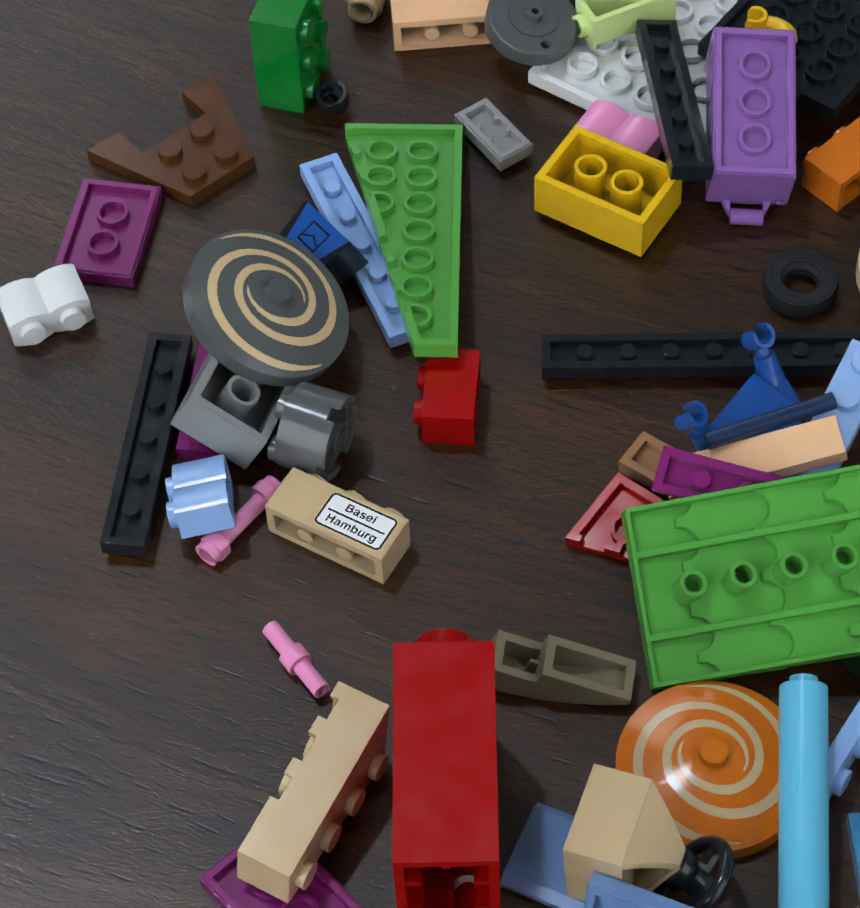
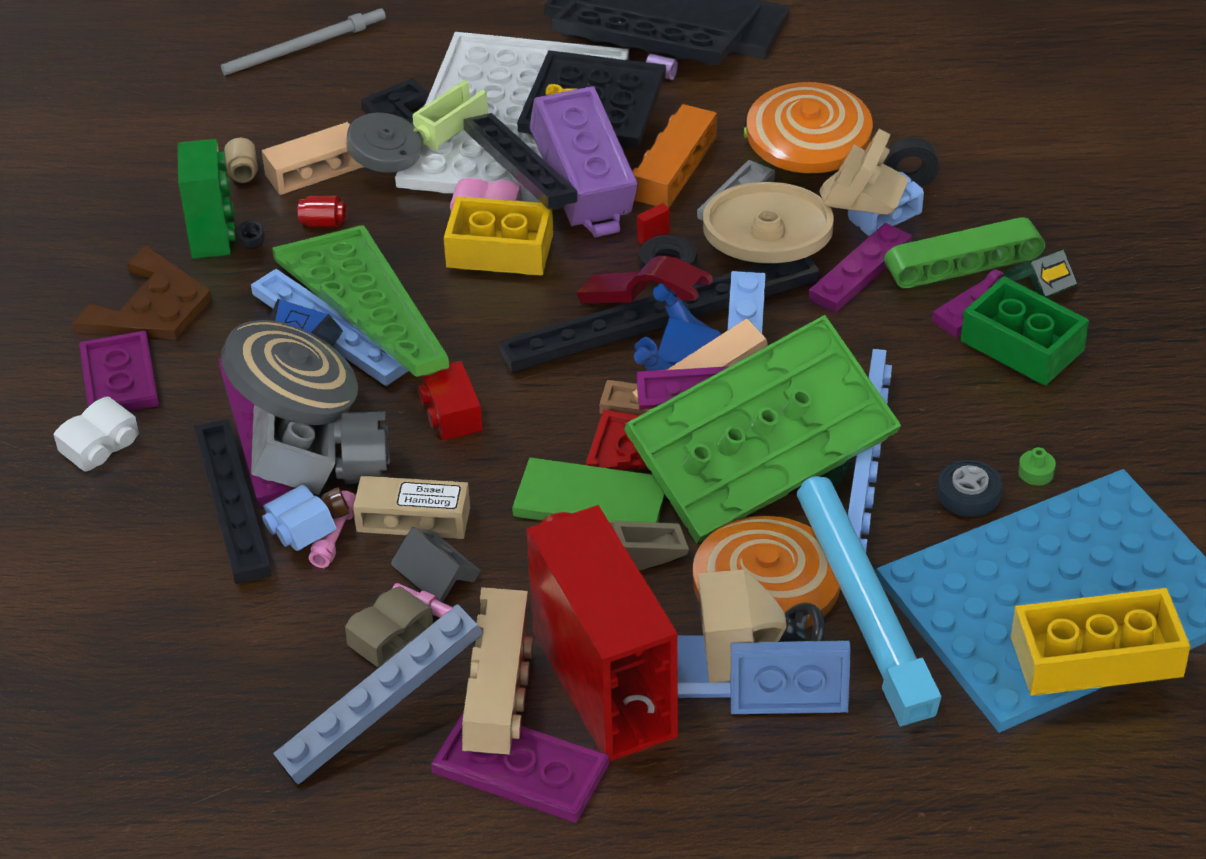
camera: 25 degrees left, 10 degrees down
(172, 769) = (378, 693): none -> sand blue plate
(237, 676) = (387, 625): none -> dark tan brick
(249, 493) = (336, 503): none -> reddish brown hinge
(329, 608) = (432, 563): none -> dark grey panel
(425, 91) = (322, 211): none -> red brick
(493, 134) = (390, 226): light grey plate -> none
(550, 581) = (571, 487): none -> bright green tile
(761, 312) = (627, 286): none -> dark red piece
(770, 420) = (700, 338): dark blue bar -> none
(803, 230) = (653, 223): none -> red tile

